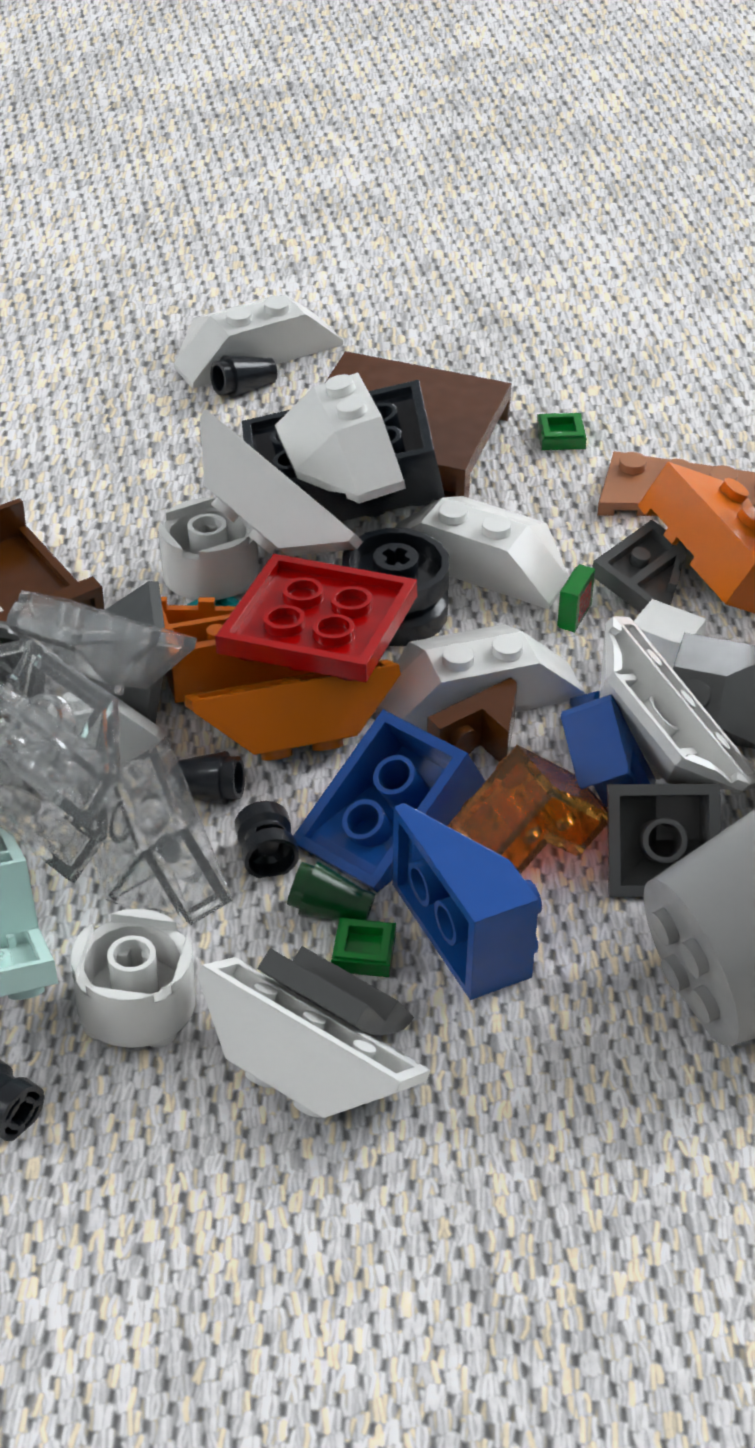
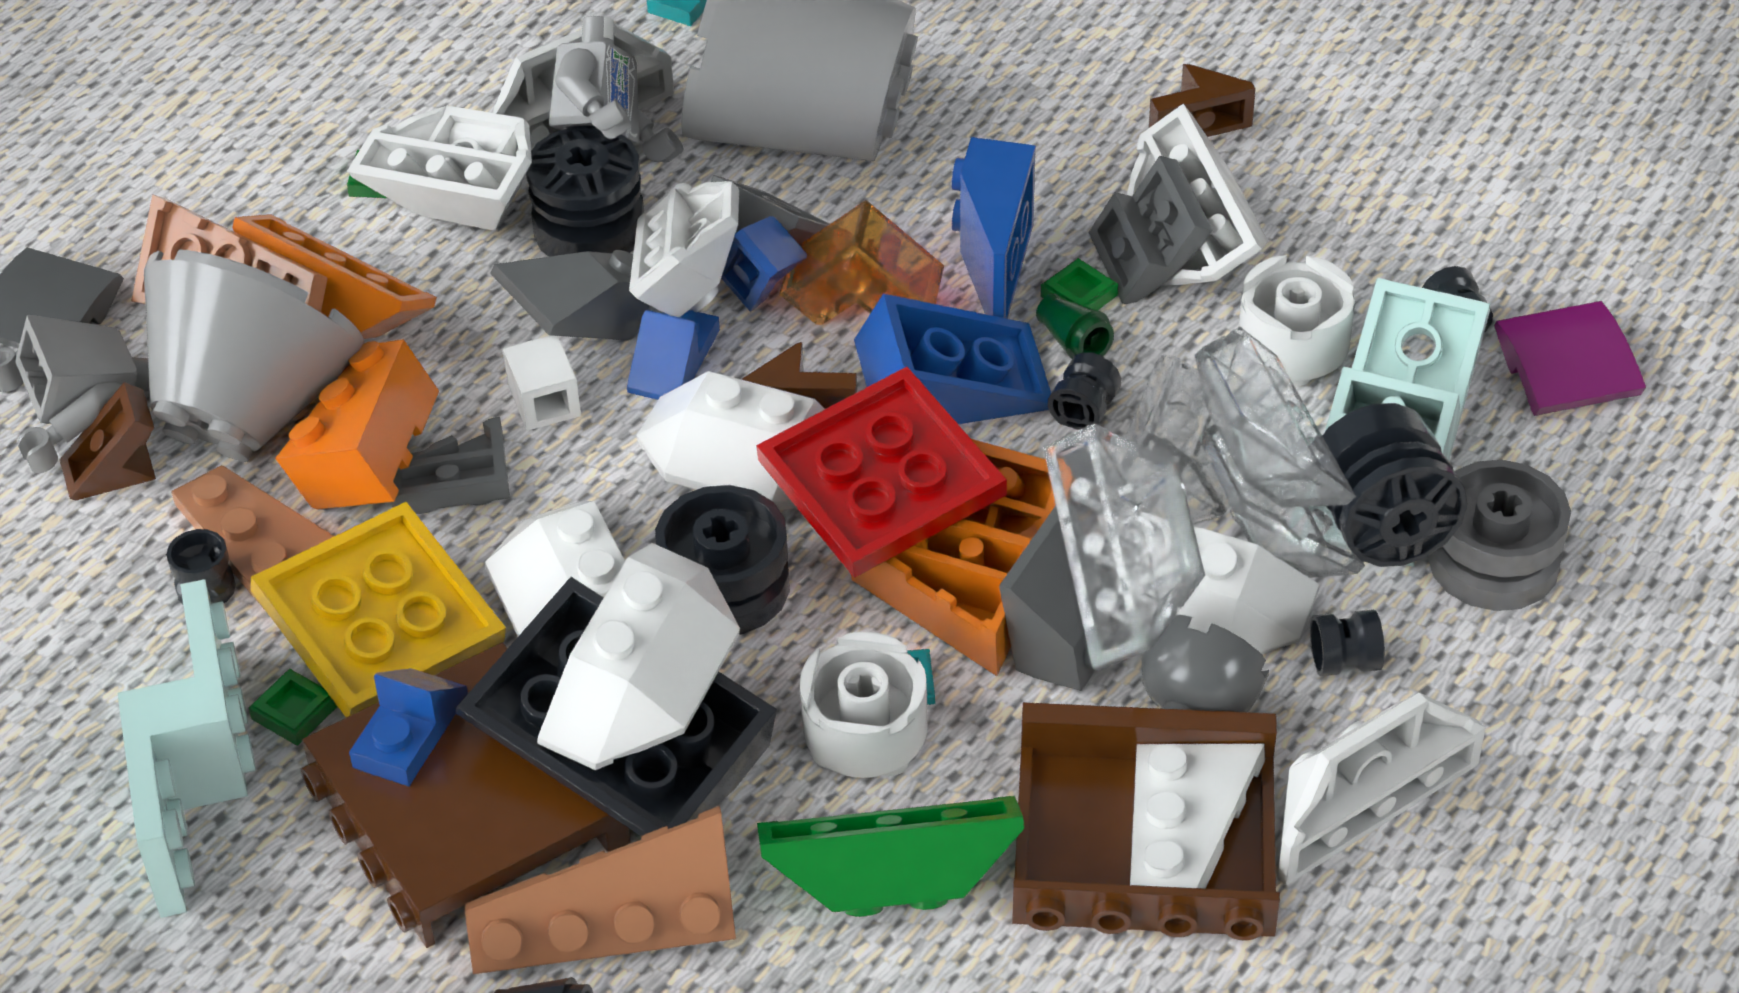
camera: 140 degrees left, 5 degrees up
(123, 498) = (894, 854): none -> green wedge
(264, 400) = (625, 901): none -> nougat wing
(266, 497) = (792, 614): white wedge -> none
(422, 1193) = (1213, 98): none -> reddish brown slope
(460, 400) = (407, 723): none -> blue slope
(570, 465) = (376, 604): none -> yellow plate
(571, 354) = (185, 747): none -> light aqua bracket
(576, 597) = (562, 468): green tile -> none
(706, 440) = (202, 556): none -> black wheel

